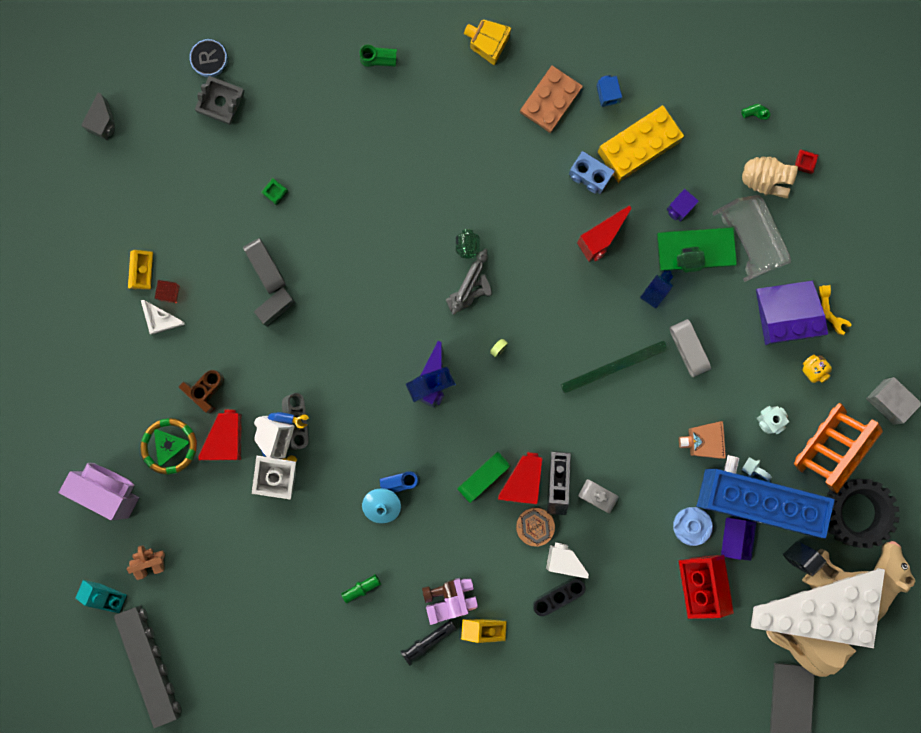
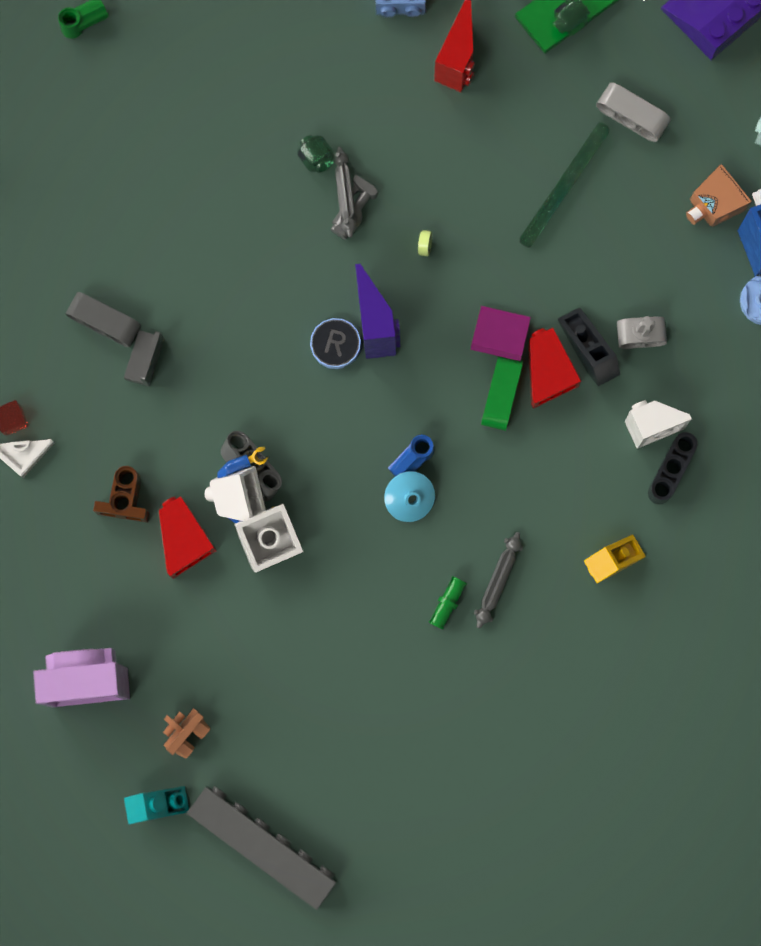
camera: 30 degrees left, 5 degrees down
(168, 446) = (124, 584): piece -> none
(274, 191) = (61, 234): green tile -> none
(398, 373) = (335, 343): none -> black tile
(402, 595) = (498, 580): none -> dark grey wheel
(420, 648) = (558, 622): black pin -> none
(430, 384) = (378, 313): clear blue slope -> none
(455, 601) = (560, 546): lavender hips -> none
(507, 438) = (500, 333): none -> magenta tile
(535, 527) = (595, 410): tile -> none
(658, 289) = (556, 72): clear blue beam -> none

